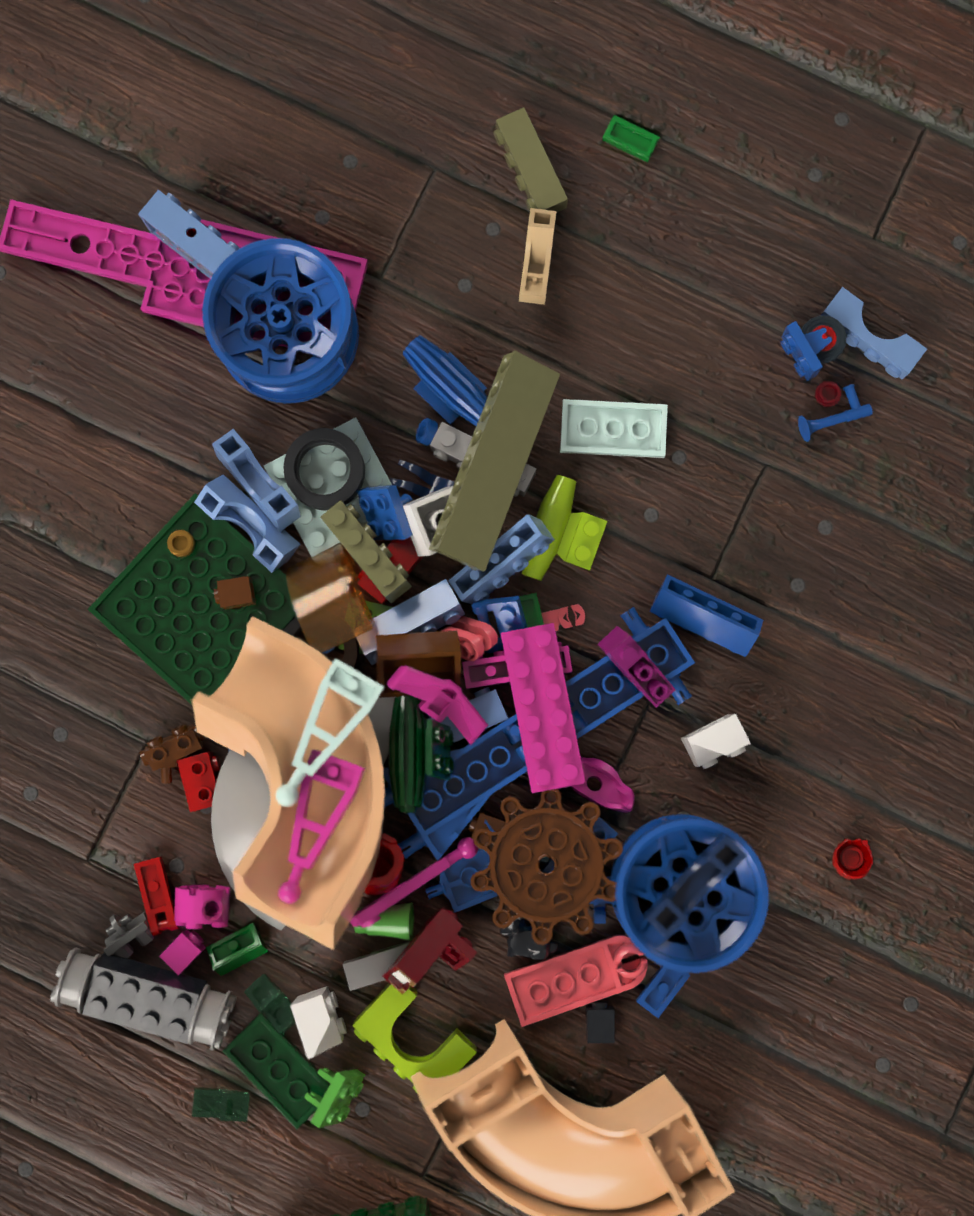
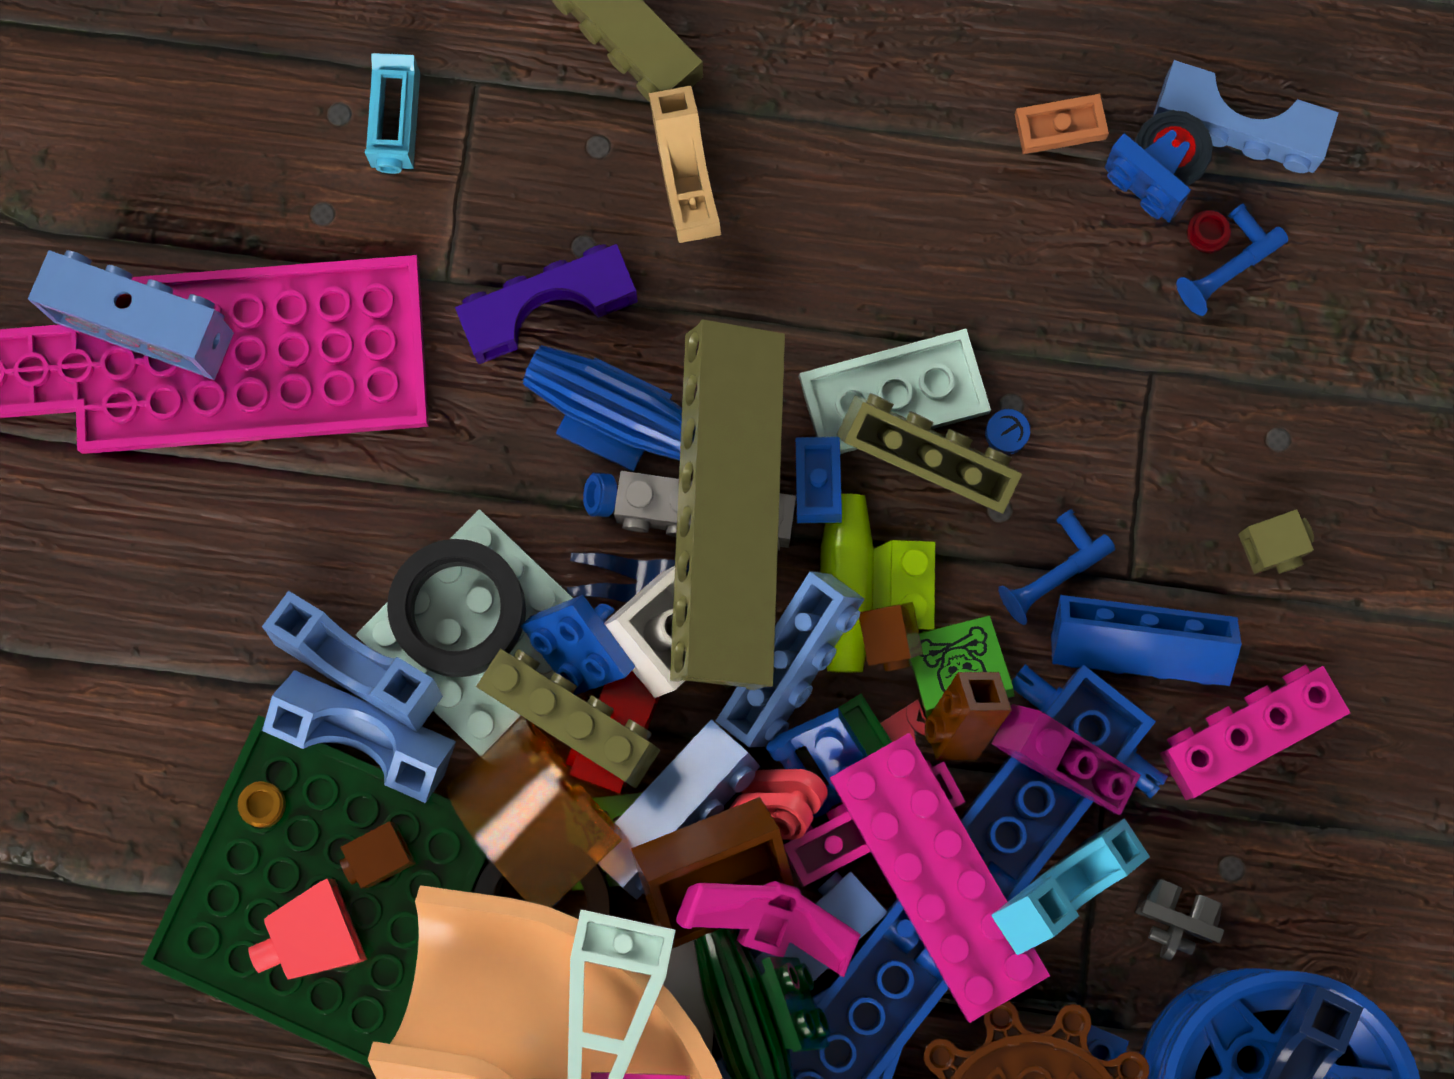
camera: 20 degrees left, 5 degrees down
(184, 624) = (309, 934): none -> coral torso
(236, 289) = (286, 306): blue wheel -> none
(370, 195) = (399, 154): none -> medium azure window
(400, 311) = (595, 281): none -> dark purple arch
(552, 463) = (818, 480): none -> blue plate
(563, 565) = (891, 636): none -> reddish brown brick
(589, 624) = (967, 716): none -> reddish brown brick
(596, 595) = (955, 649): none -> bright green tile
(613, 792) = (1095, 975): dark pink piece -> none
(614, 737) = (1054, 897): none -> medium azure arch
(619, 469) = (928, 454): none -> olive brick
(671, 471) = (1007, 431): none -> blue tile
(681, 783) = (1200, 923): none -> dark grey hips
(693, 556) = (1089, 553): none -> blue piece
(715, 739) = (1229, 833): white slope -> none
(751, 687) = (1254, 732): none -> dark pink brick
(764, 303) = (1061, 123): none -> nougat plate
(802, 586) = (1278, 542): none -> olive brick

